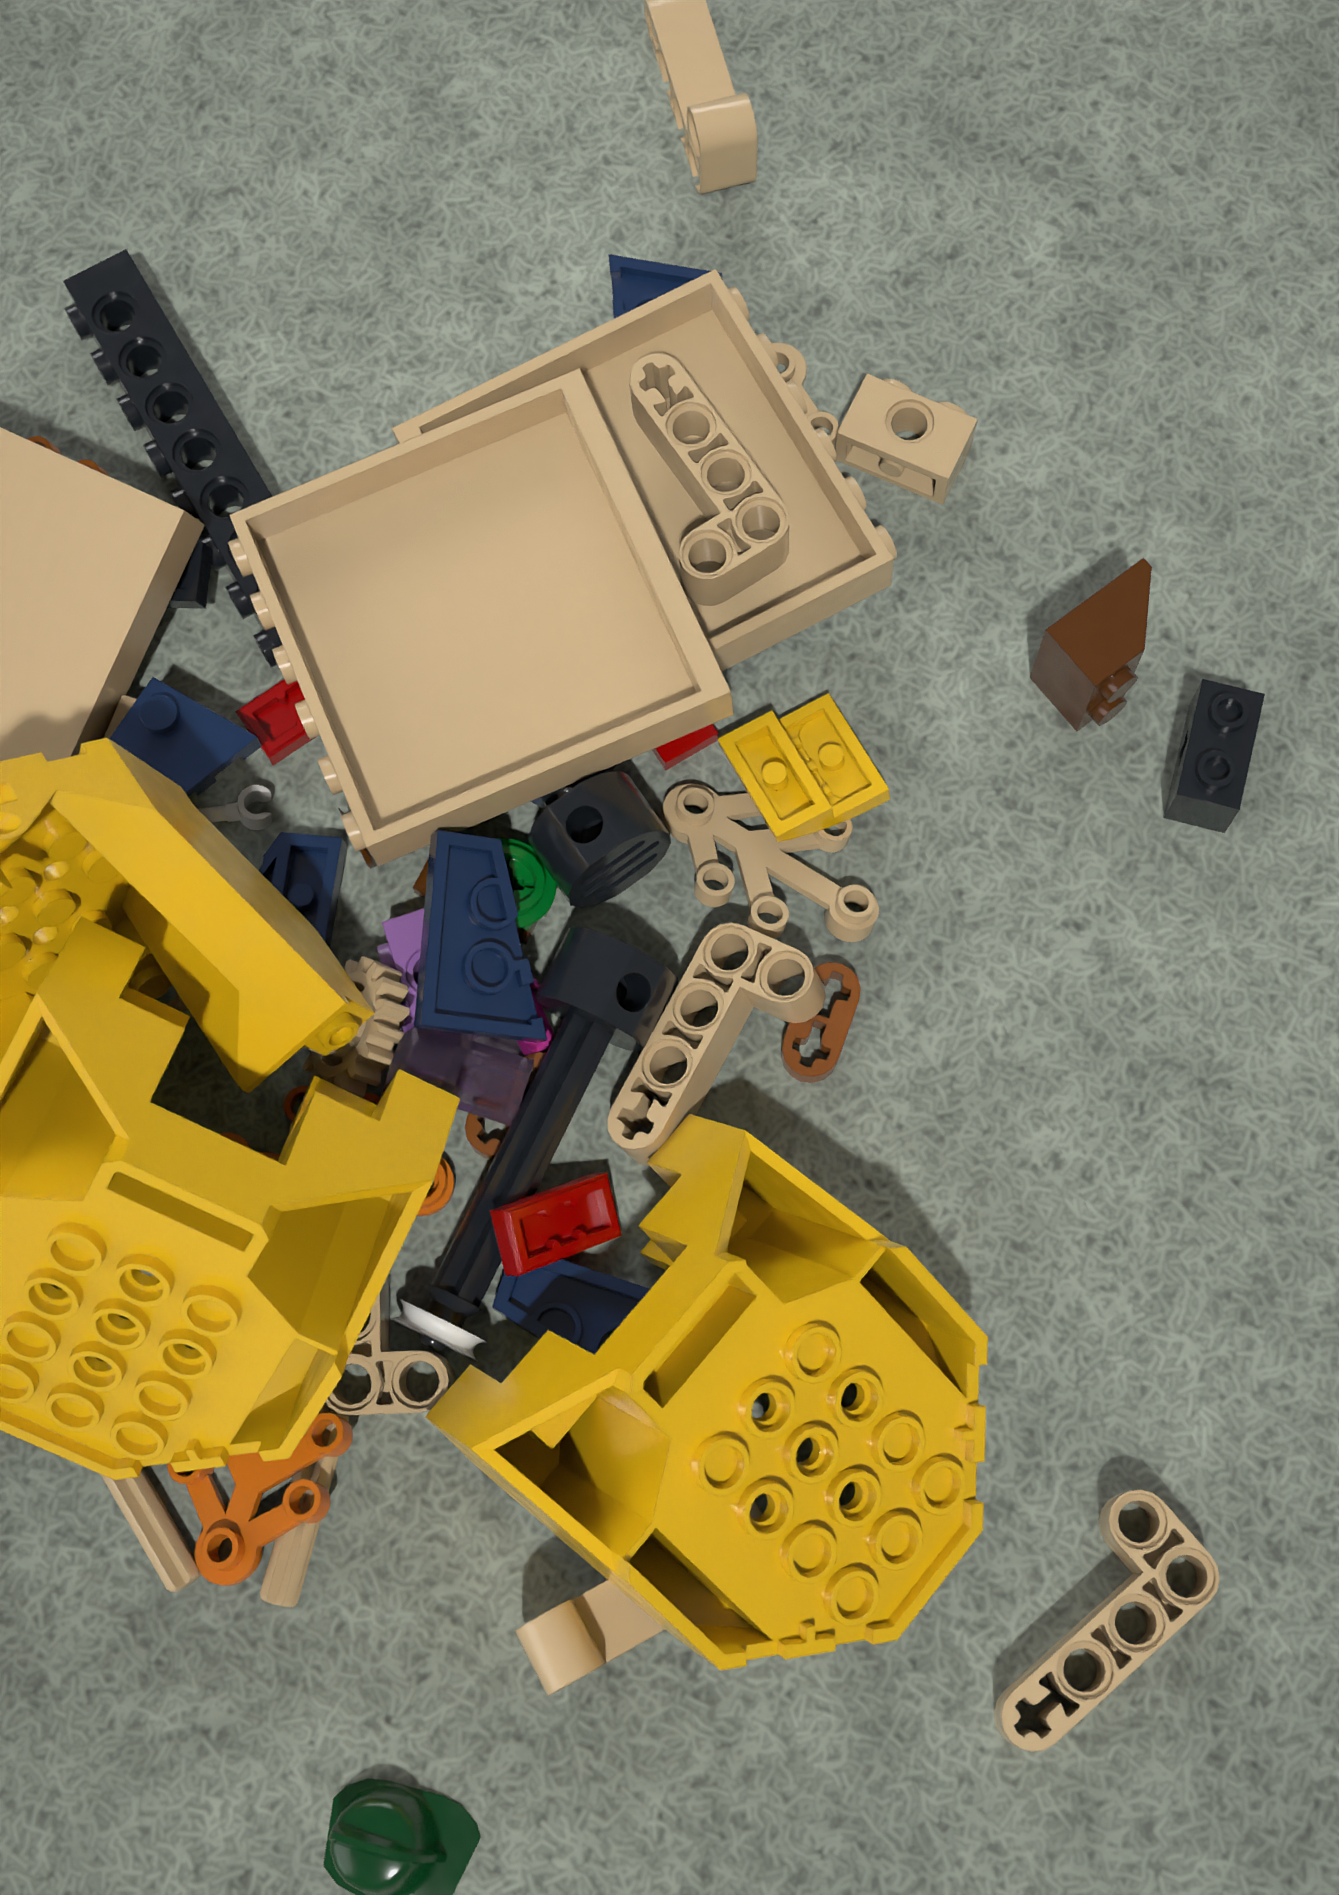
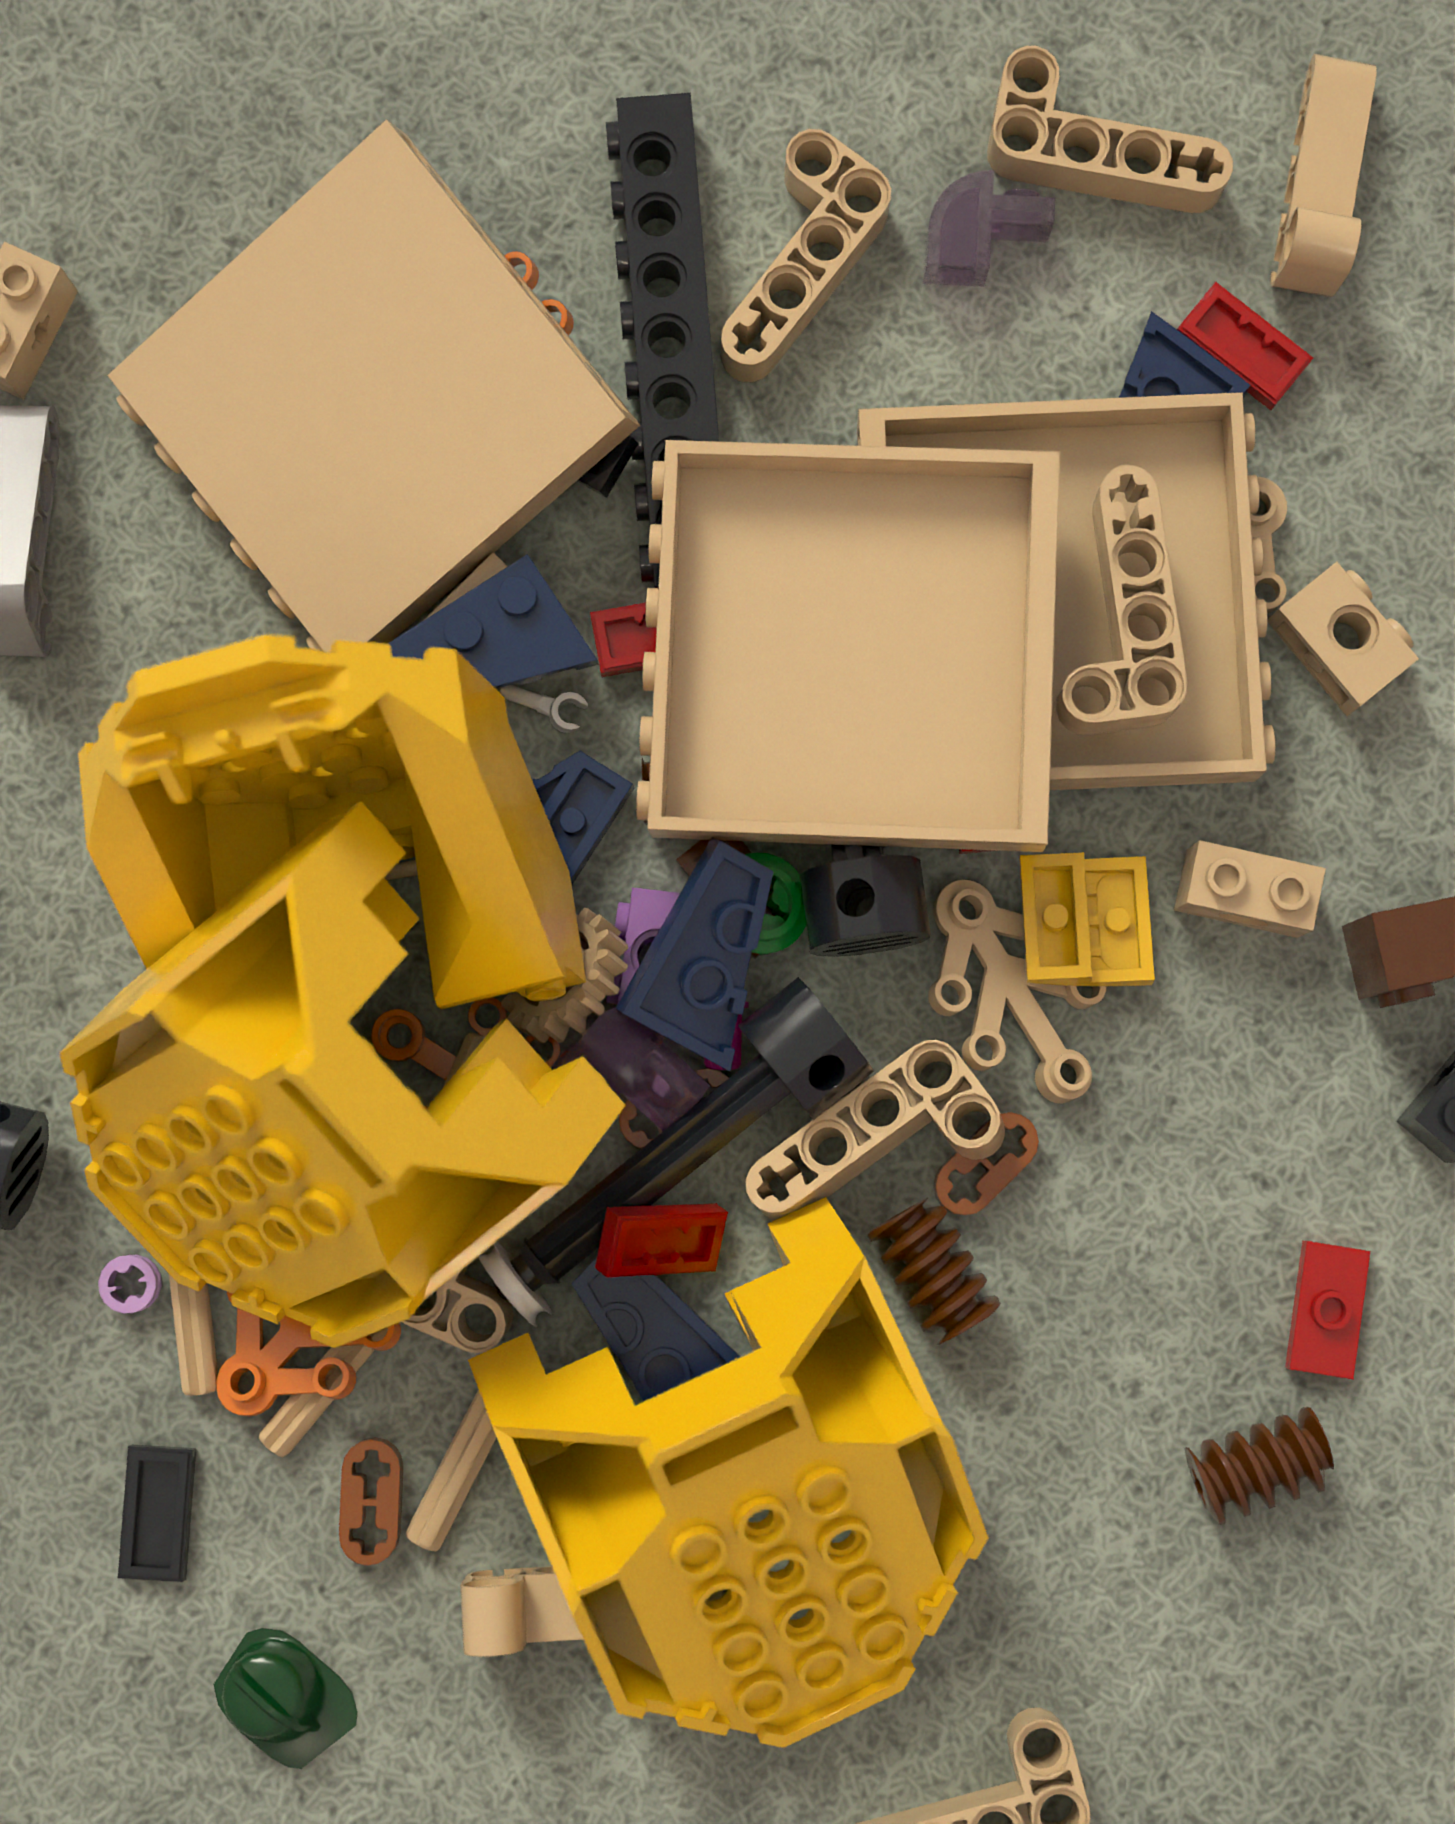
camera: 20 degrees right, 10 degrees up
(62, 1495) = (135, 1302): none -> lavender bush
(194, 1722) = (157, 1513): none -> black tile
(288, 354) = (795, 267): none -> tan beam
(381, 1615) = (355, 1499): none -> dark orange beam
(420, 246) = (972, 216): none -> brick
(466, 1543) = (453, 1478): none -> tan axle
(578, 136) = (1105, 140): none -> tan beam
(703, 245) = (1245, 344): none -> red plate
(818, 1134) = (935, 1270): none -> reddish brown piece
(932, 676) = (1249, 889): none -> tan brick
(1189, 1005) = (1327, 1309): none -> red plate
(1201, 1164) = (1261, 1464): none -> reddish brown piece

